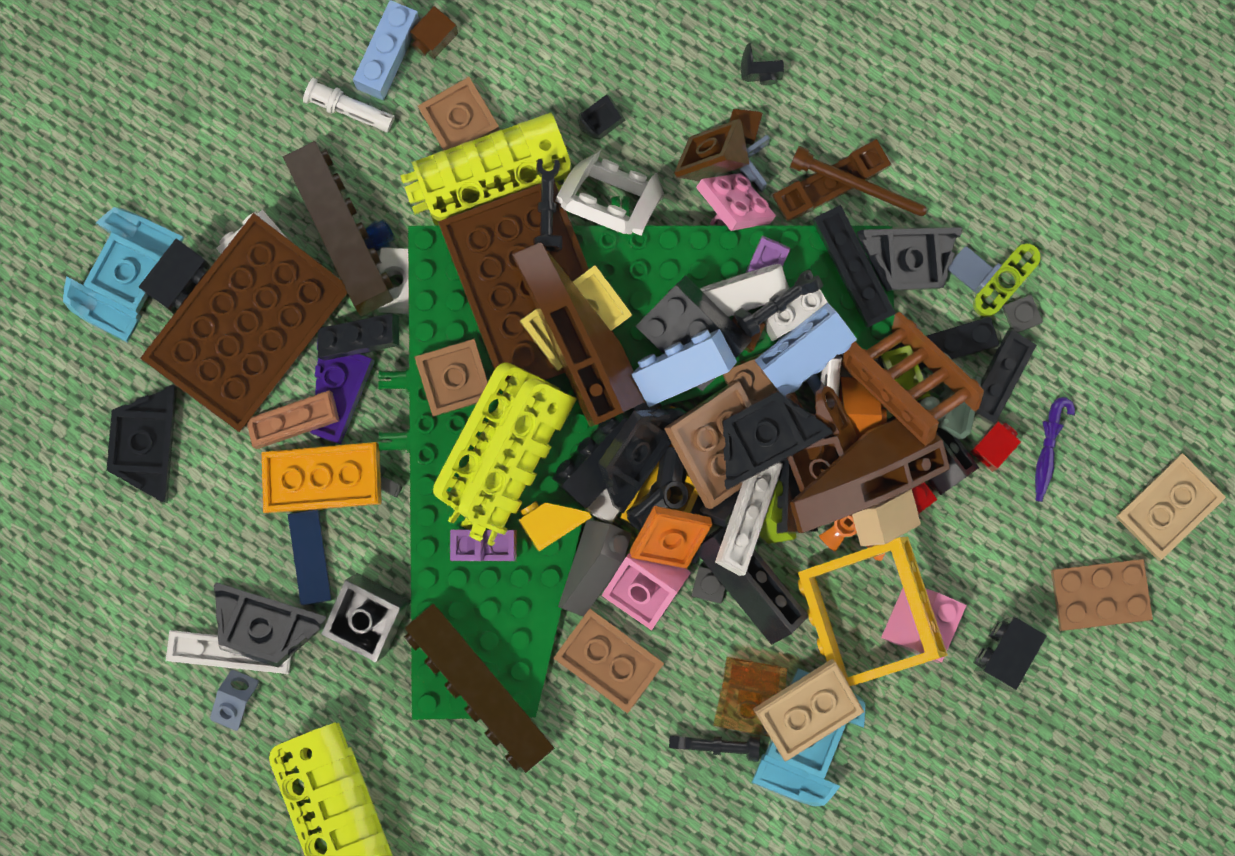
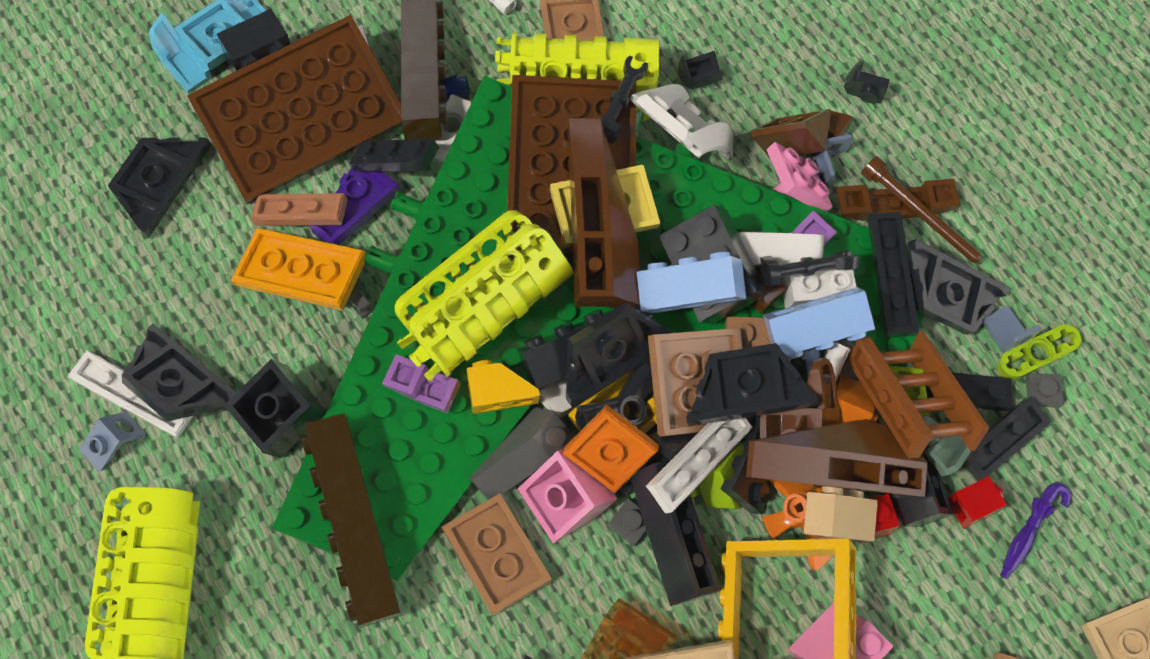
camera: 20 degrees right, 15 degrees down
(309, 557) = (253, 337): dark blue tile -> none
(452, 377) = (461, 214): medium nougat plate -> none

